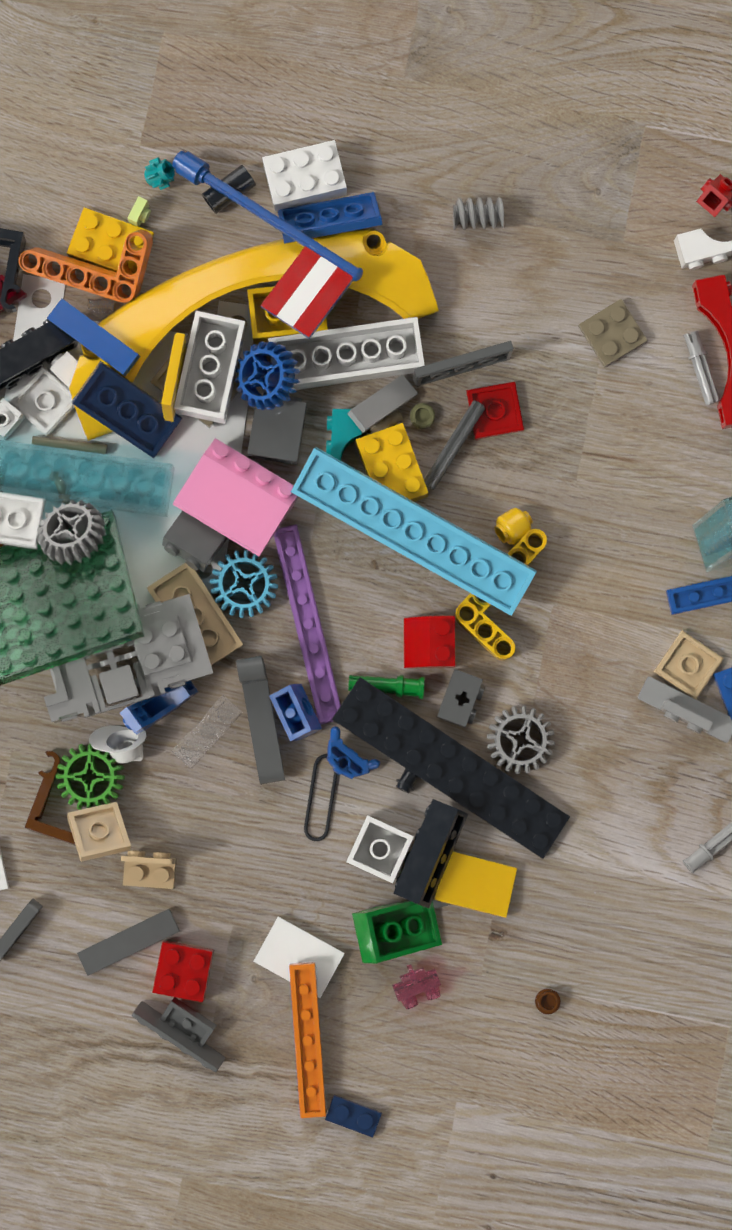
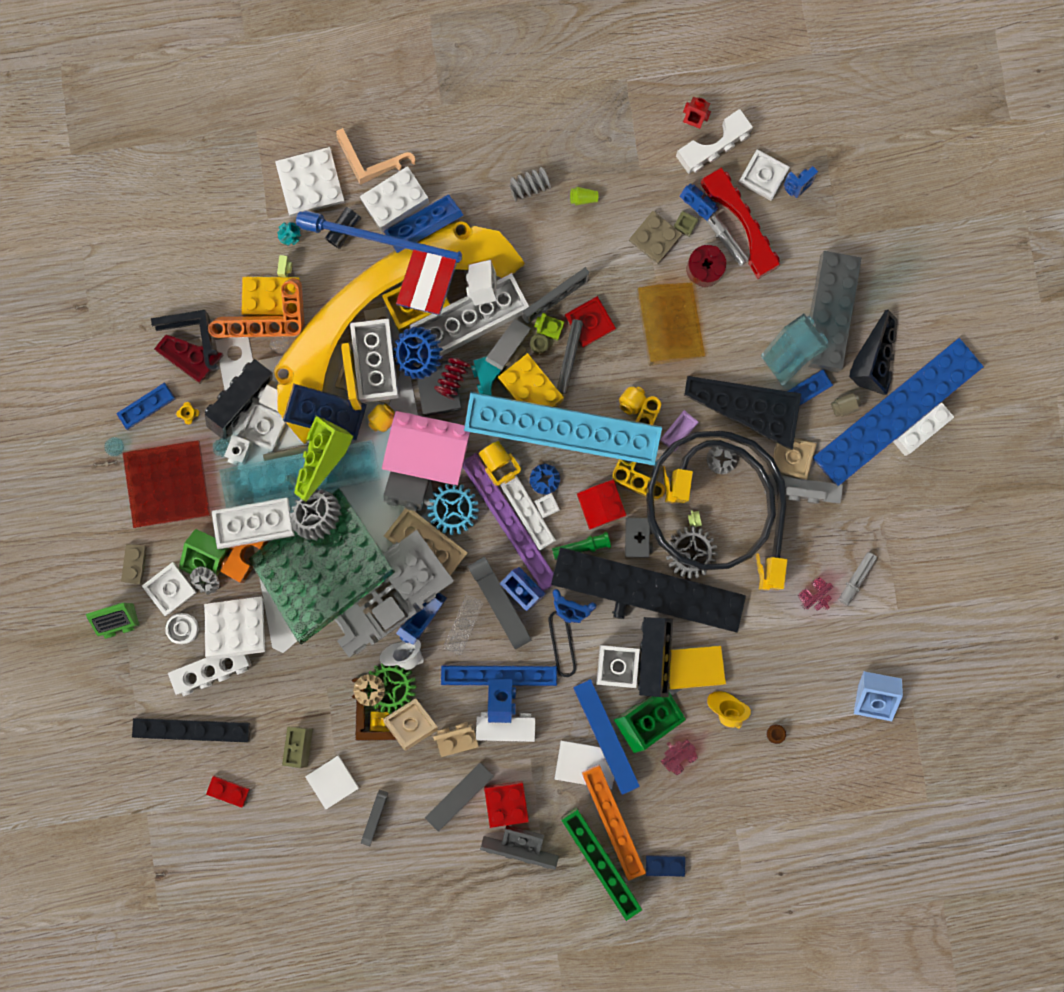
camera: 15 degrees left, 0 degrees up
(59, 813) = (377, 722): none -> yellow tile
(72, 764) = (375, 683): none -> tan gear
(93, 337) = (282, 368): blue tile -> none
(112, 455) = (325, 449): none -> lime wedge
(194, 440) = (381, 418): none -> yellow head
(207, 117) = (309, 181): none -> white plate
(215, 876) = (519, 729): none -> white brick
(216, 853) = (500, 700): none -> blue brick
(229, 809) = (481, 674): none -> blue tile
(274, 1085) = (601, 864): none -> green brick
(293, 131) = (372, 171): none -> light nougat hinge
(298, 421) = (452, 377): none -> dark red piece
(319, 539) = (495, 458): none -> yellow piece
(335, 620) = (528, 513): none -> white tile
(335, 931) = (606, 737): none -> blue tile
(361, 578) = (541, 487): none -> blue gear
(362, 620) = (547, 505): none -> white tile
(376, 316) = (482, 283): none -> white brick
(441, 399) = (549, 326): none -> lime bracket
(499, 949) = (729, 709): none -> yellow piece
(531, 659) = (774, 573): none -> black piece
(539, 700) = (694, 519): none -> yellowish green plate
(540, 251) = (583, 196): none -> lime cone
(558, 584) = (679, 429): none -> lavender tile
(587, 639) = (715, 465): none -> light grey gear
(593, 446) = (670, 323): none -> clear yellow slope
(656, 329) = (685, 223): none -> olive tile
(665, 590) = (760, 409): none -> black wing
(667, 841) = (809, 600): none -> clear pink hips
(673, 380) = (711, 256): none -> dark red brick
(686, 316) = (692, 196): none -> blue hinge
(690, 998) = (878, 696): none -> light blue slope

